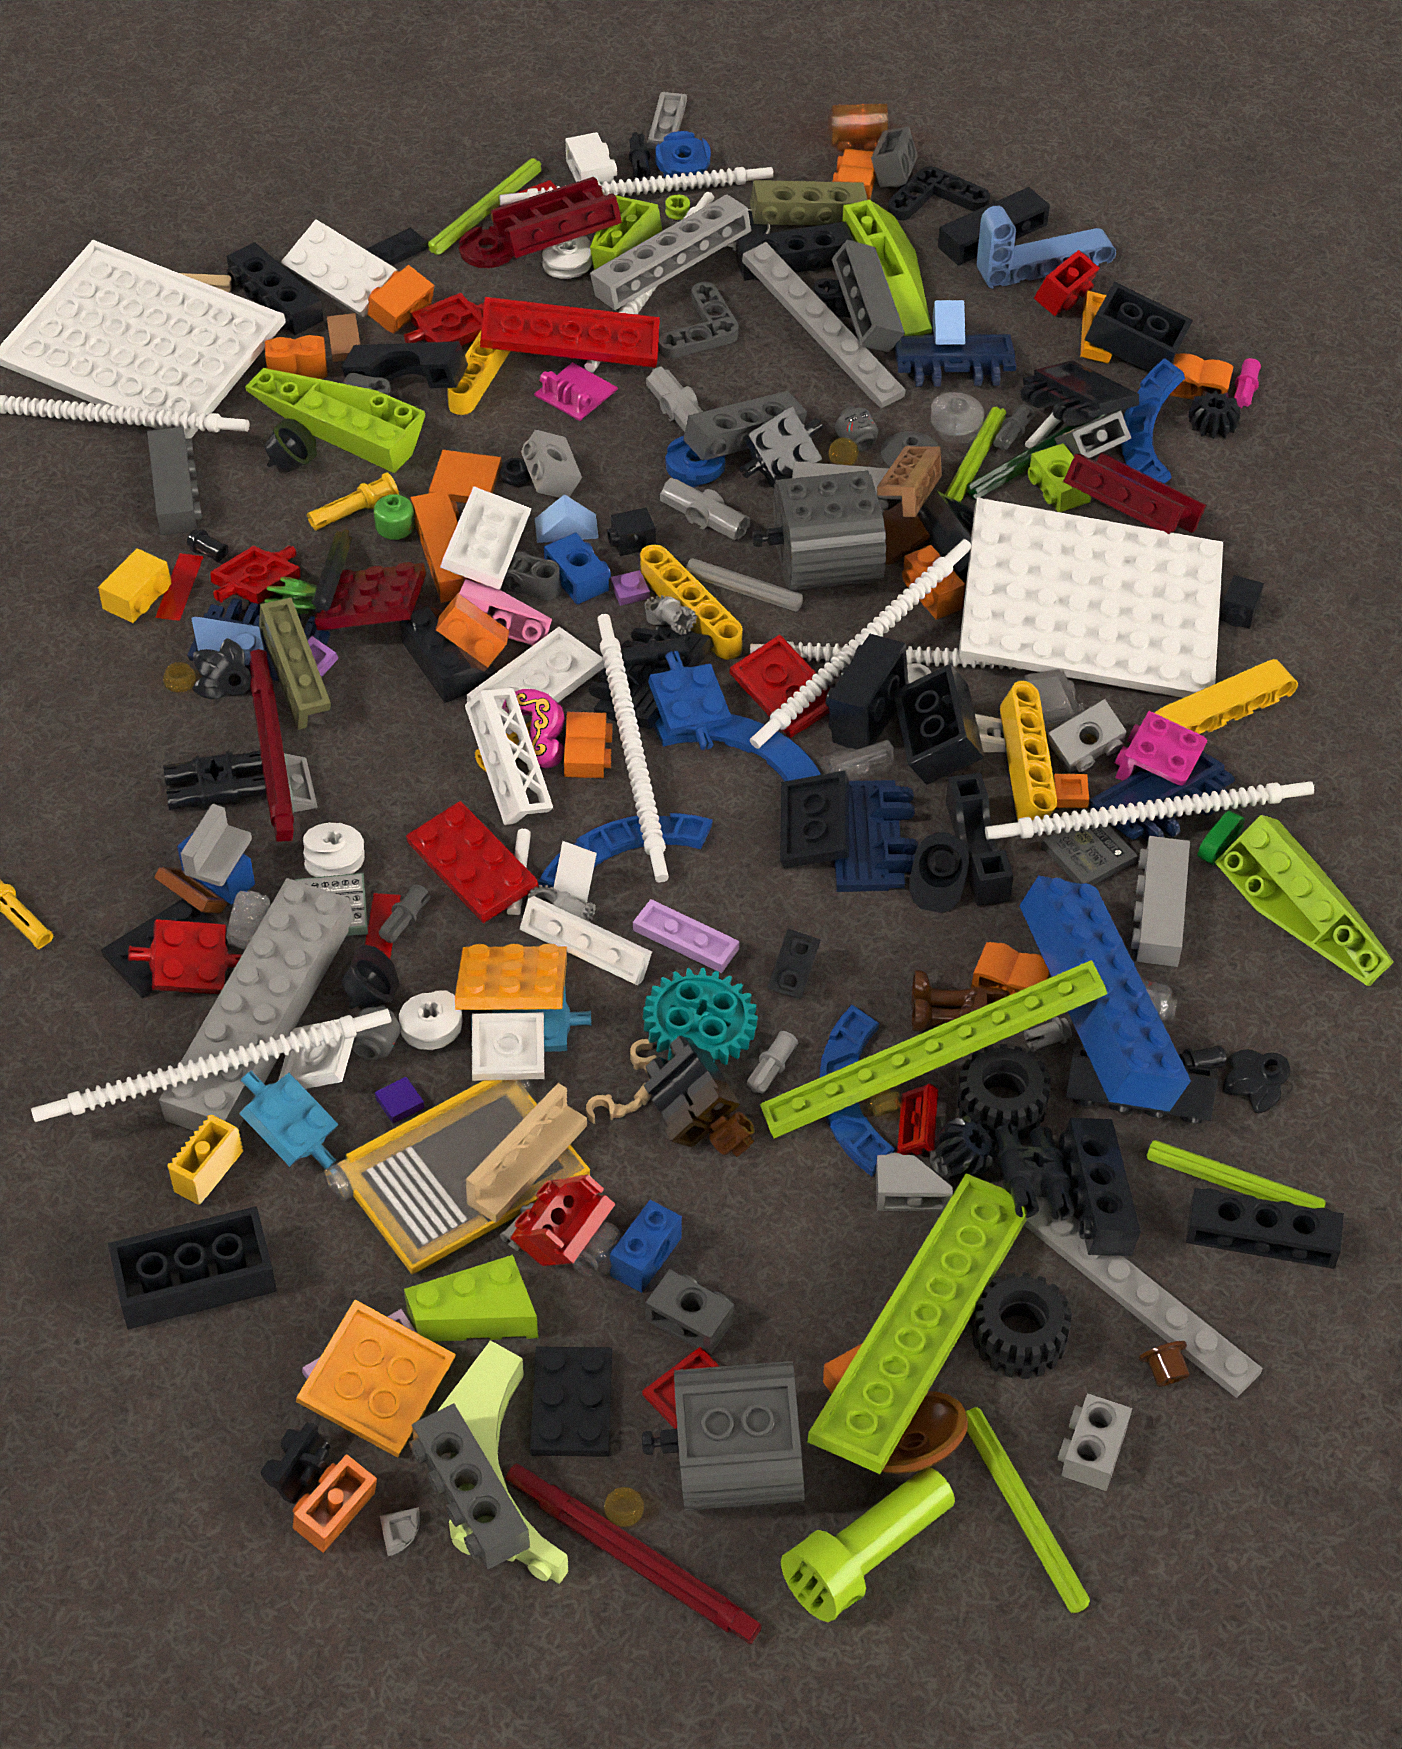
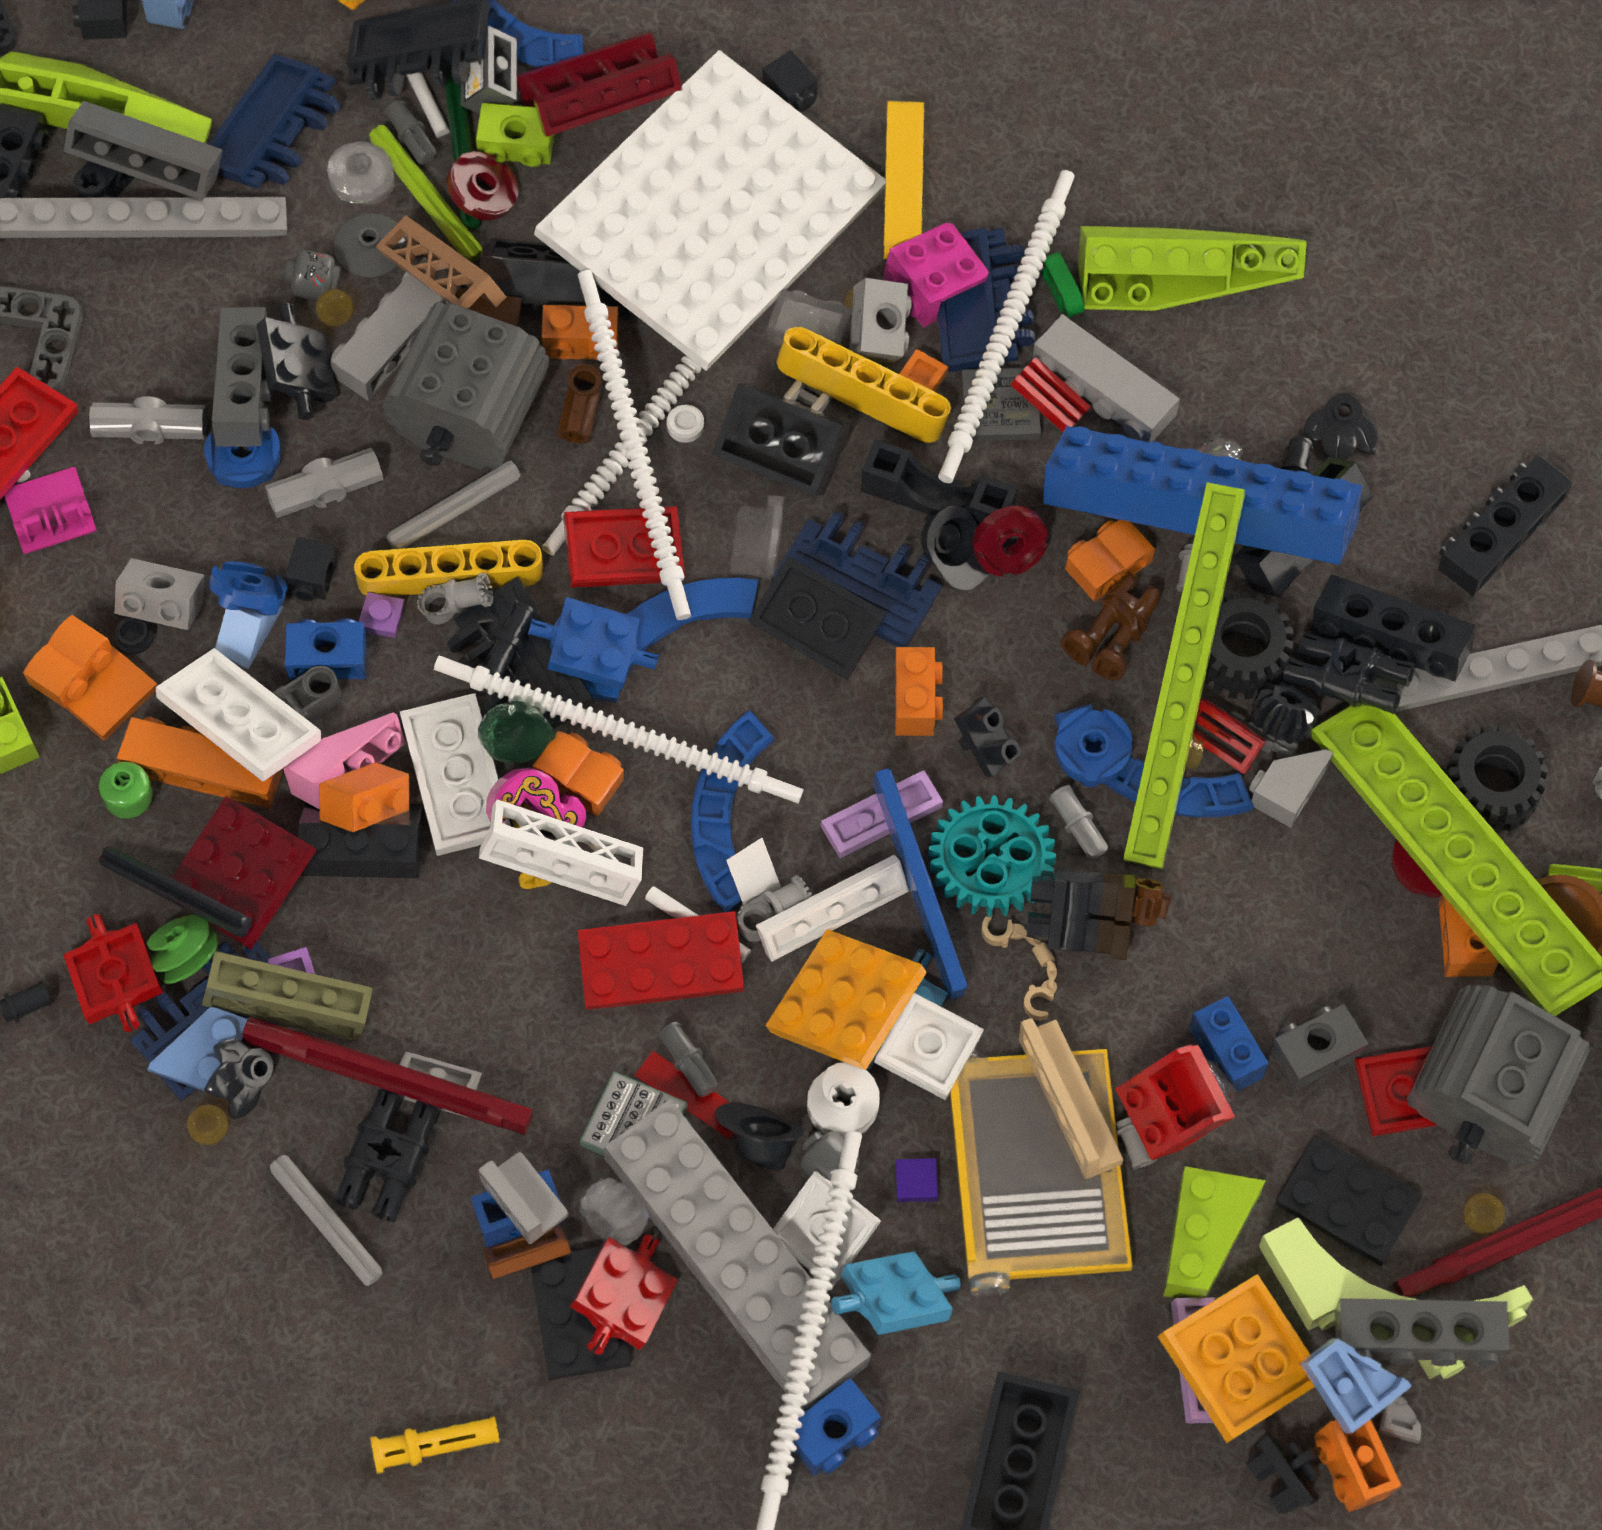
camera: 60 degrees left, 15 degrees up
(135, 585) = (45, 1104): yellow brick -> none
(147, 773) = (326, 1220): none -> light grey axle
(148, 1123) = (842, 1406): none -> blue brick
(180, 588) = (61, 1061): red piece -> none
(205, 1159) = (895, 1395): yellow brick -> none
(333, 850) = (582, 1090): white piece -> none
(364, 497) = (65, 804): yellow pin -> none
(385, 1447) = (1351, 1384): none -> medium blue wing
(465, 442) = (68, 661): none -> orange brick
(584, 686) = (514, 732): none -> clear green hair
(589, 502) = (246, 586): none -> blue plate
(637, 978) = (919, 884): none -> blue tile
(800, 904) = (915, 691): none -> orange brick
(834, 1051) = (1094, 725): none -> blue plate
(862, 613) = (580, 405): none -> reddish brown piece
(864, 694) = (698, 477): black brick -> none
(949, 322) = (228, 101): light blue slope -> none
(985, 894) = (998, 528): none -> dark red tile
(1013, 467) = (474, 200): none -> dark red tile
(1123, 848) = (1053, 391): none -> red tile
(1229, 1176) = (1435, 515): lime axle -> none

